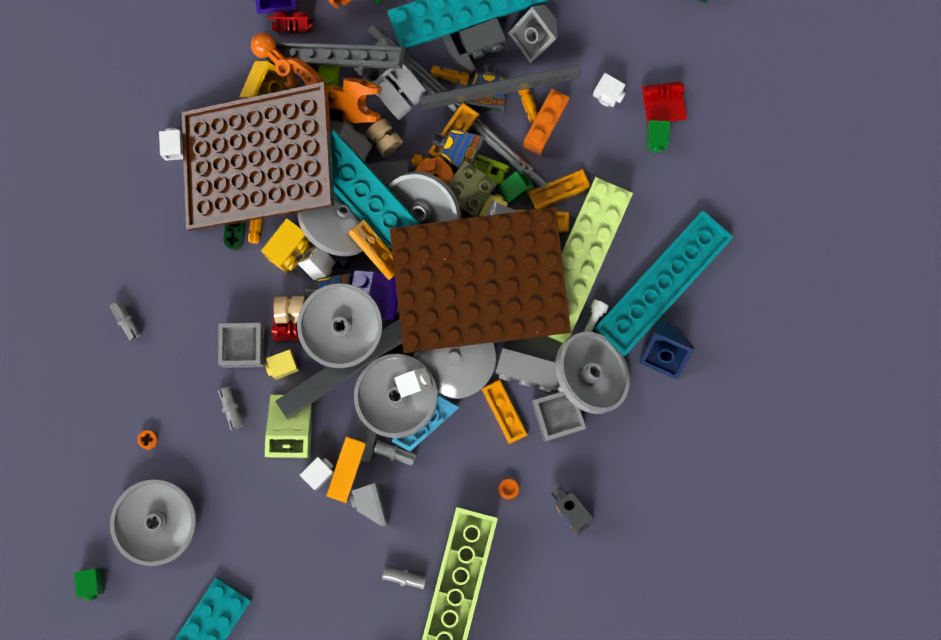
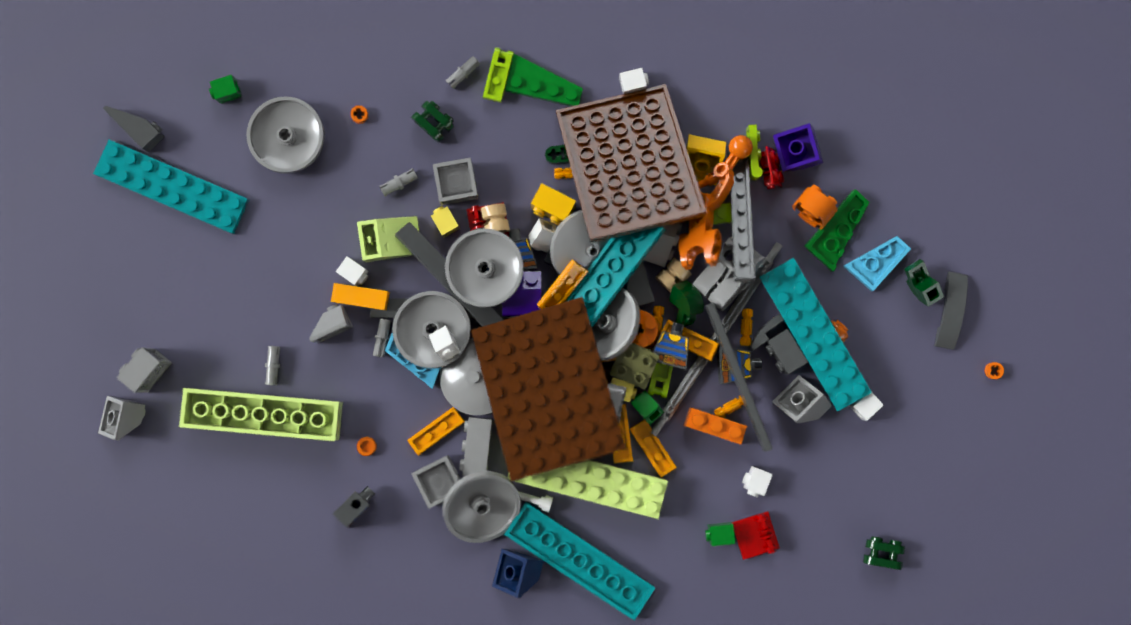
camera: 80 degrees right, 5 degrees up
(136, 284) = (497, 75): none -> lime plate
(153, 243) = (536, 82): none -> green wing
(173, 349) = (432, 109): none -> dark green brick
(289, 36) = (755, 171): none -> lime plate
(412, 125) = (688, 300): none -> dark green brick

